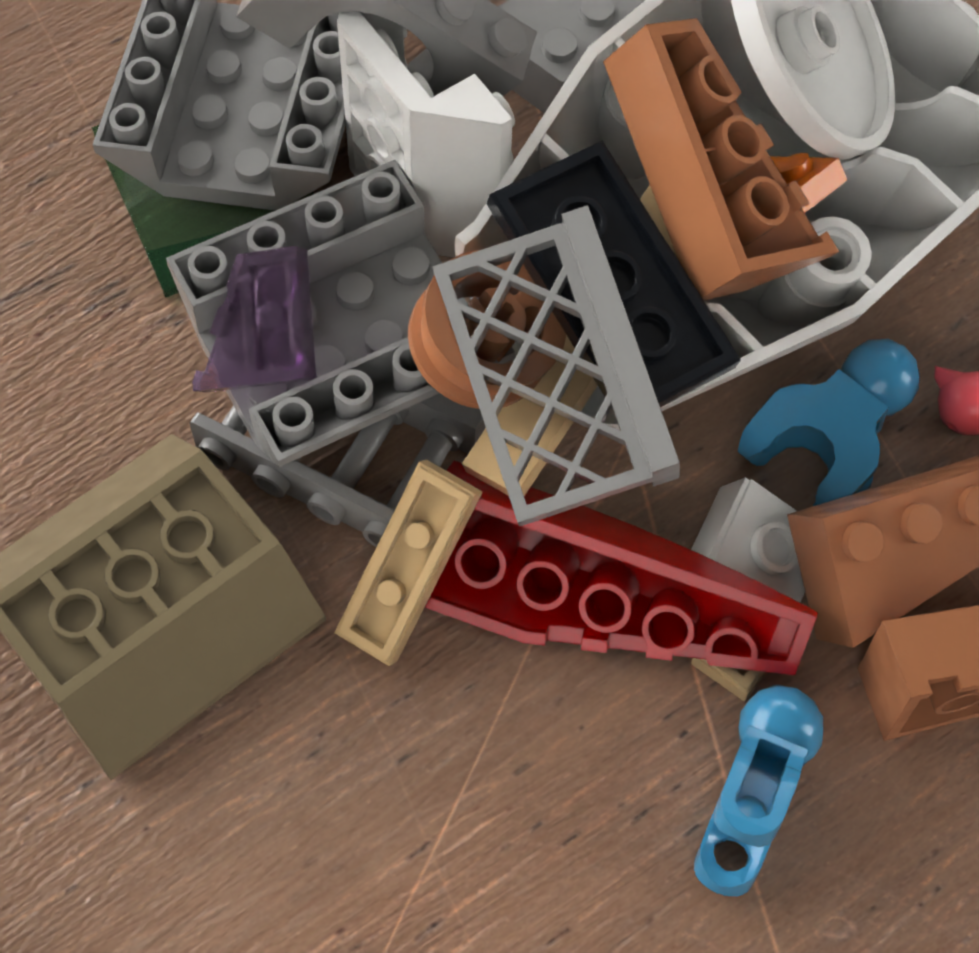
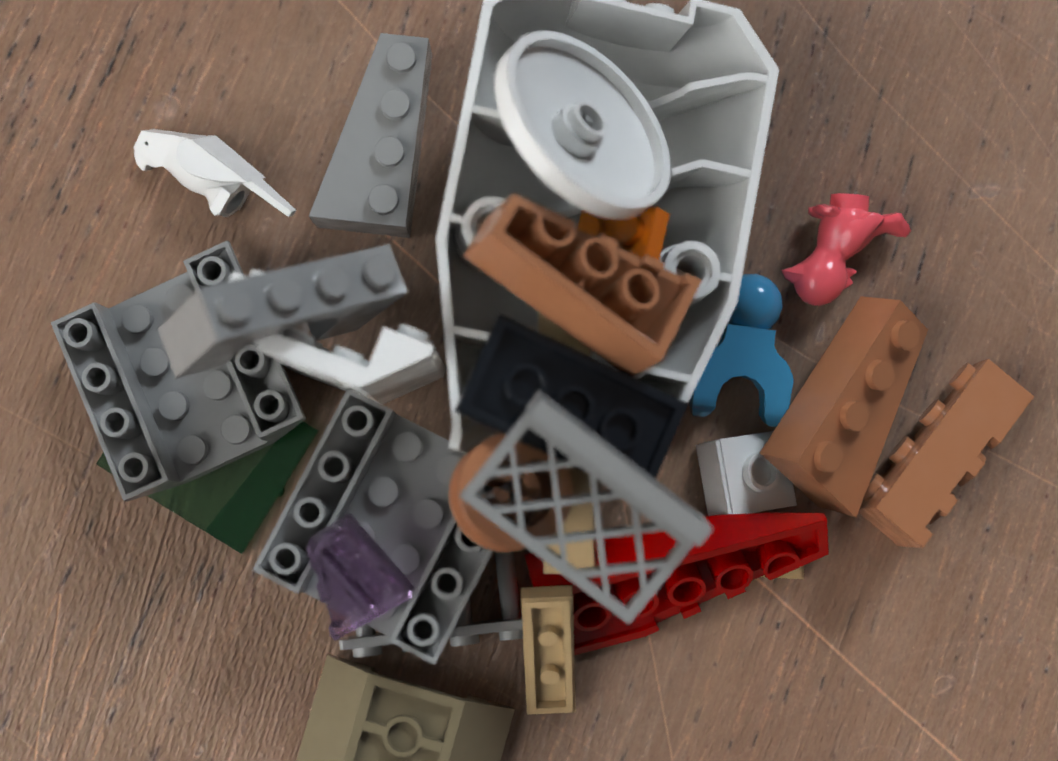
camera: 30 degrees left, 20 degrees up
(778, 737) = (853, 640): dark azure piece -> none

